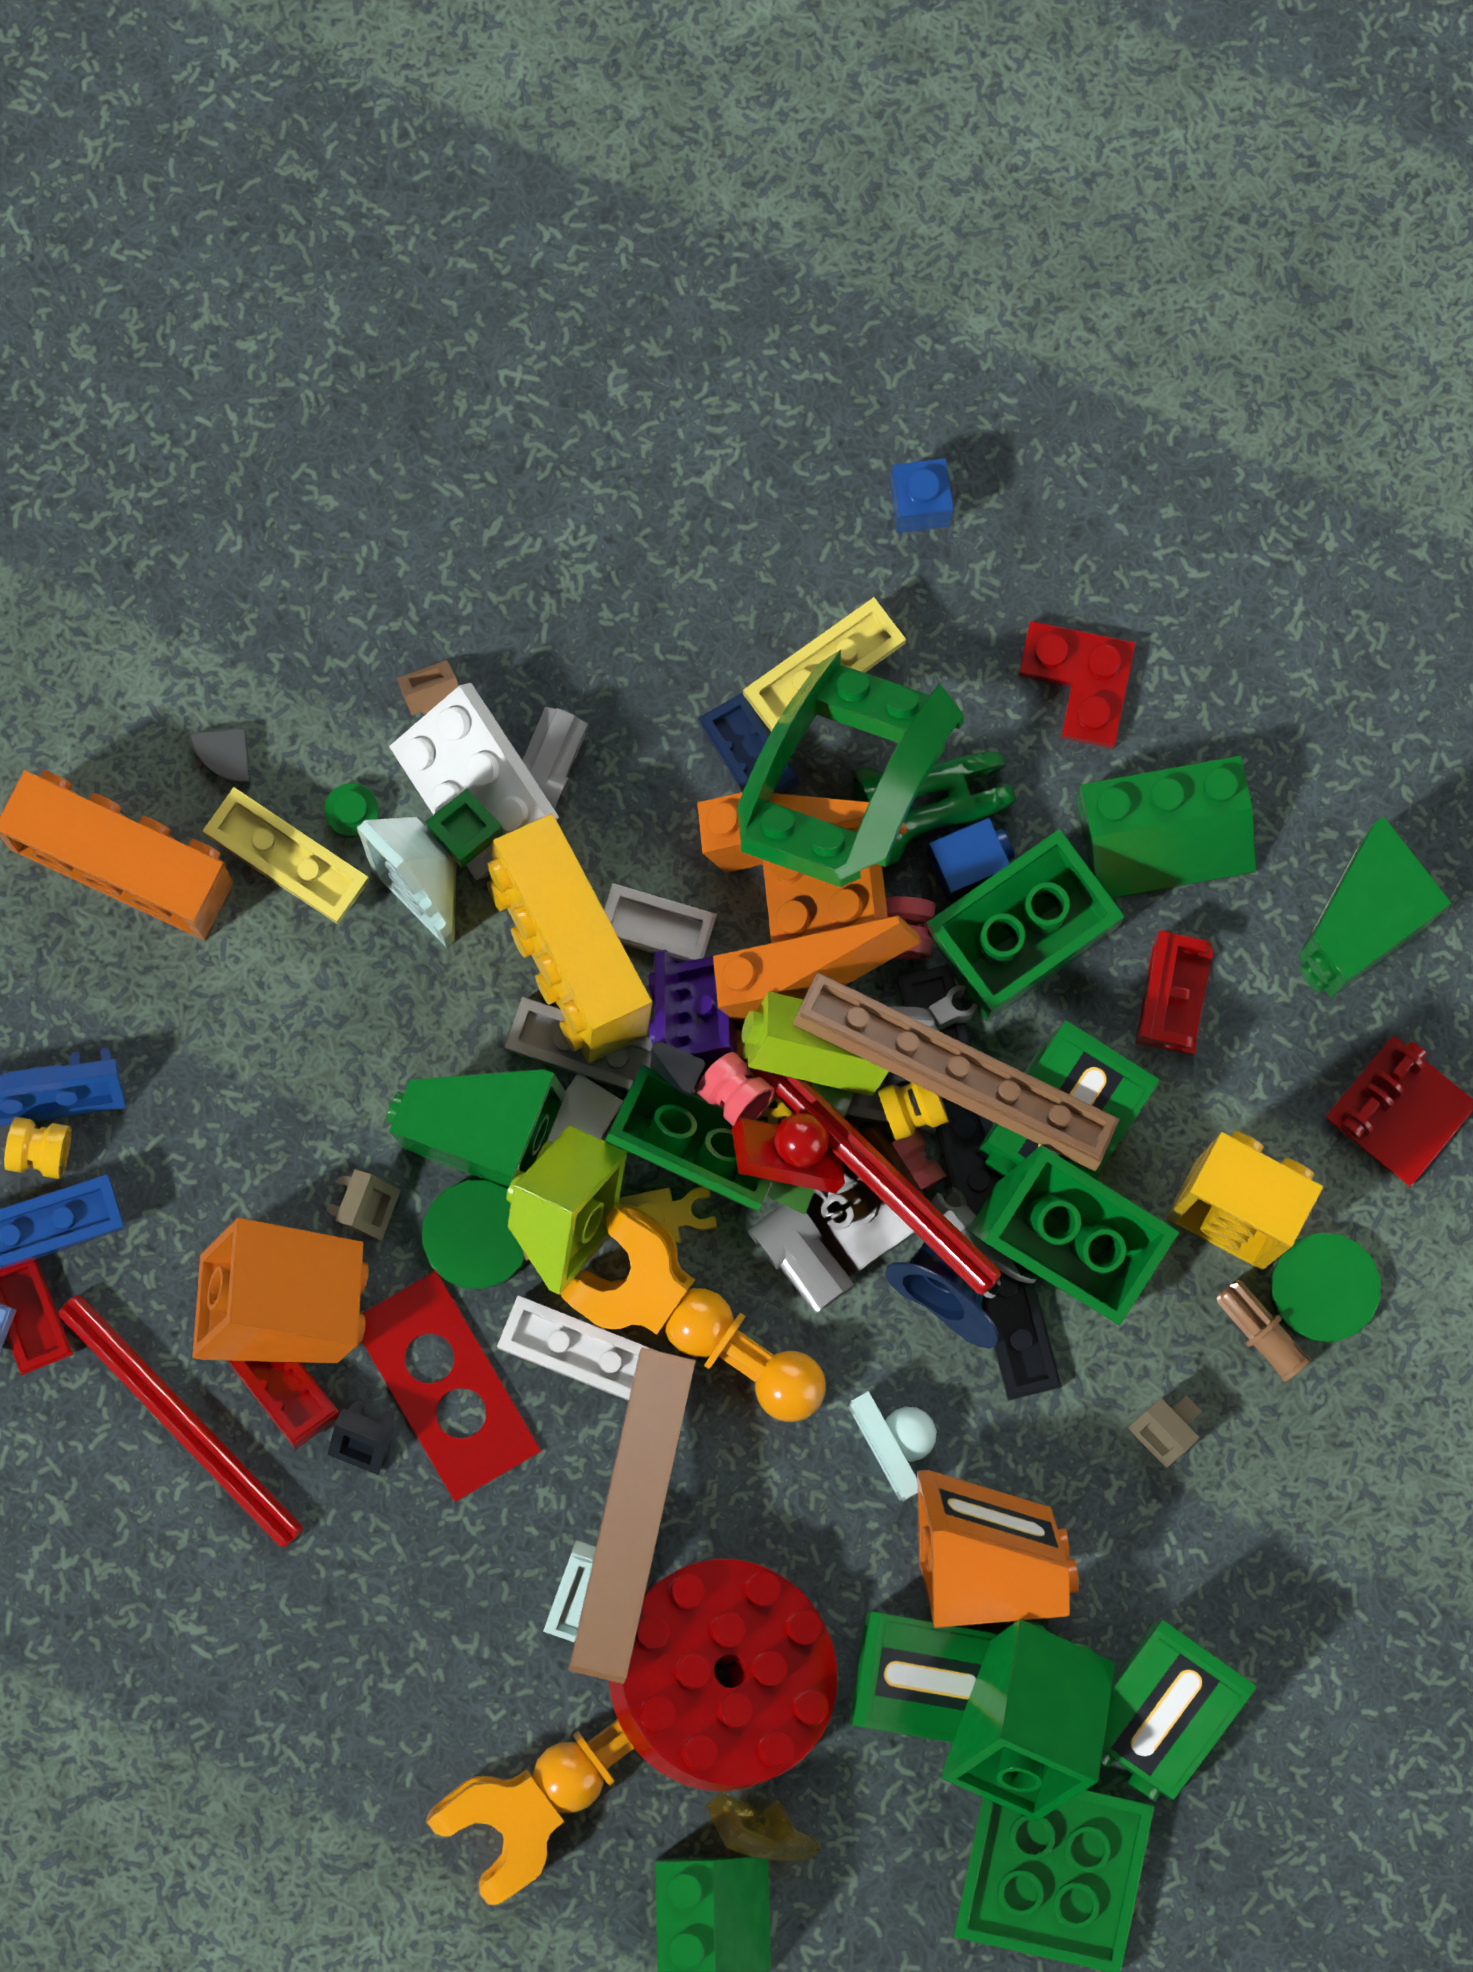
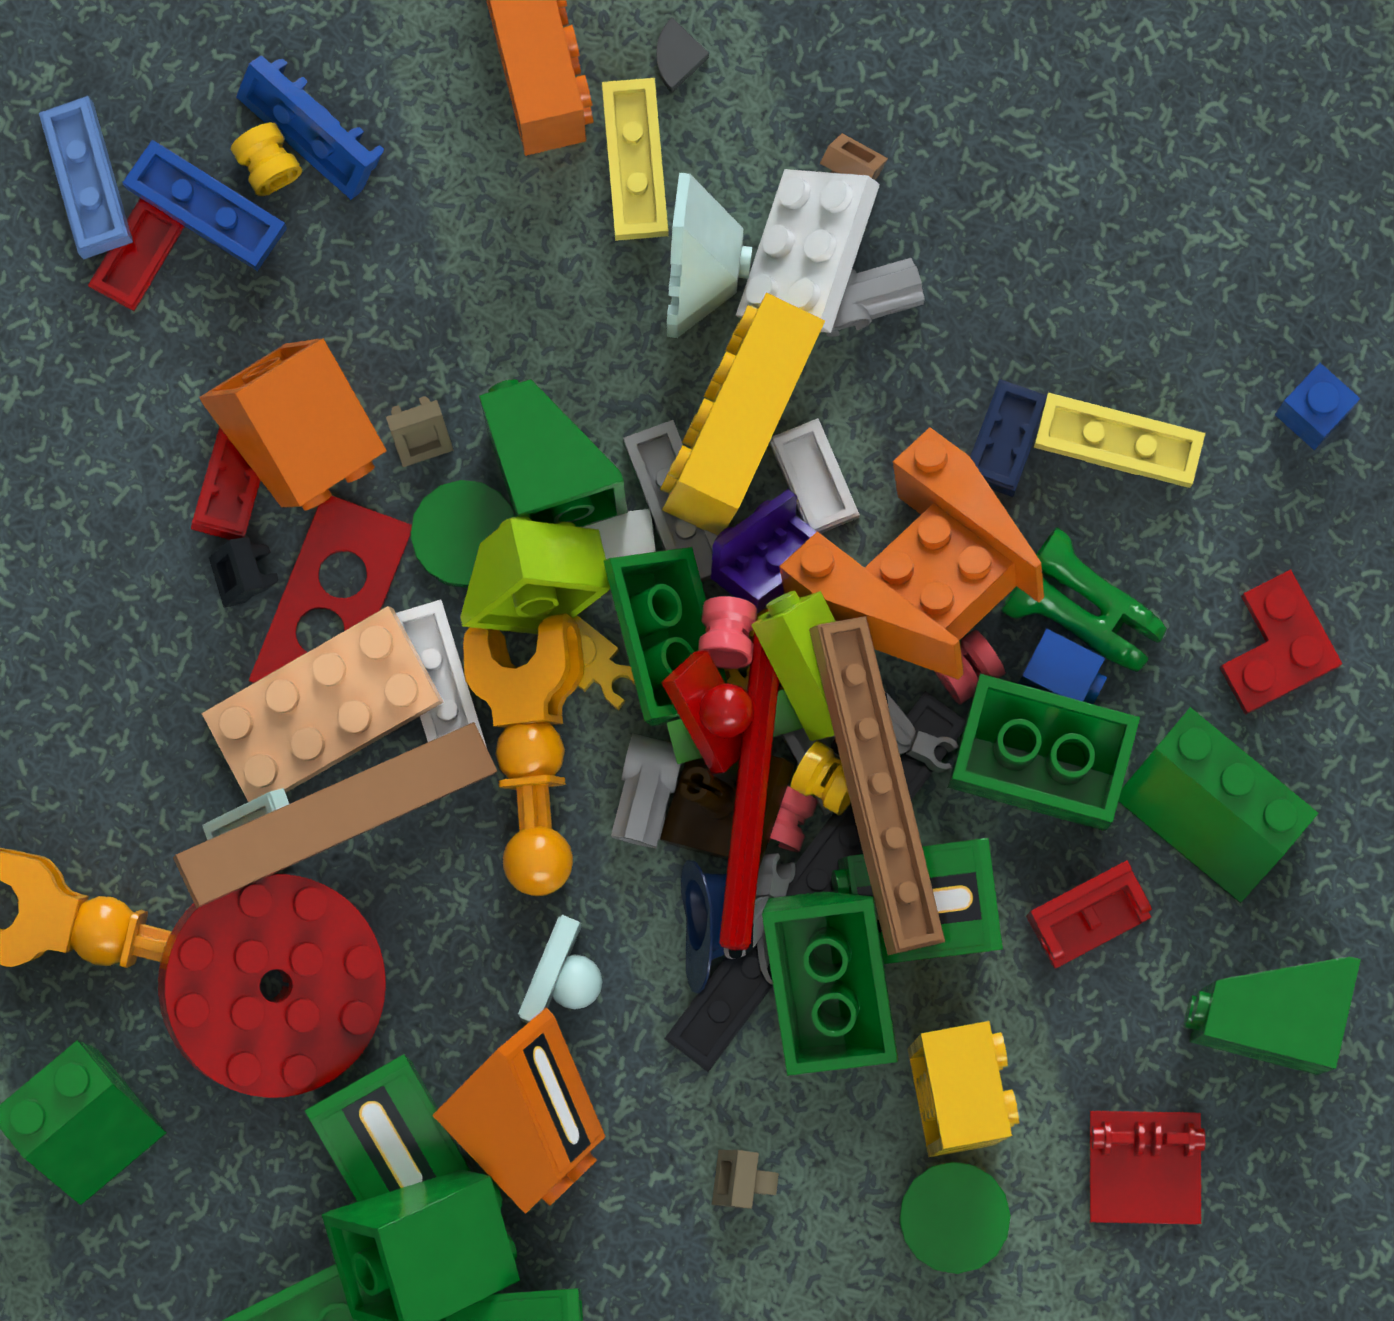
camera: 55 degrees right, 0 degrees up
(180, 1421) = (147, 429): red axle -> none
(349, 807) = (716, 176): green plate -> none
(464, 828) = (761, 267): green plate -> none
(527, 1459) = (323, 706): none -> light nougat plate
(677, 1067) = (709, 574): black slope -> none
(759, 1834) = (172, 1105): clear yellow slope -> none
(867, 703) = (1124, 520): green wedge -> none
(1262, 1330) = (880, 1194): medium nougat axle -> none

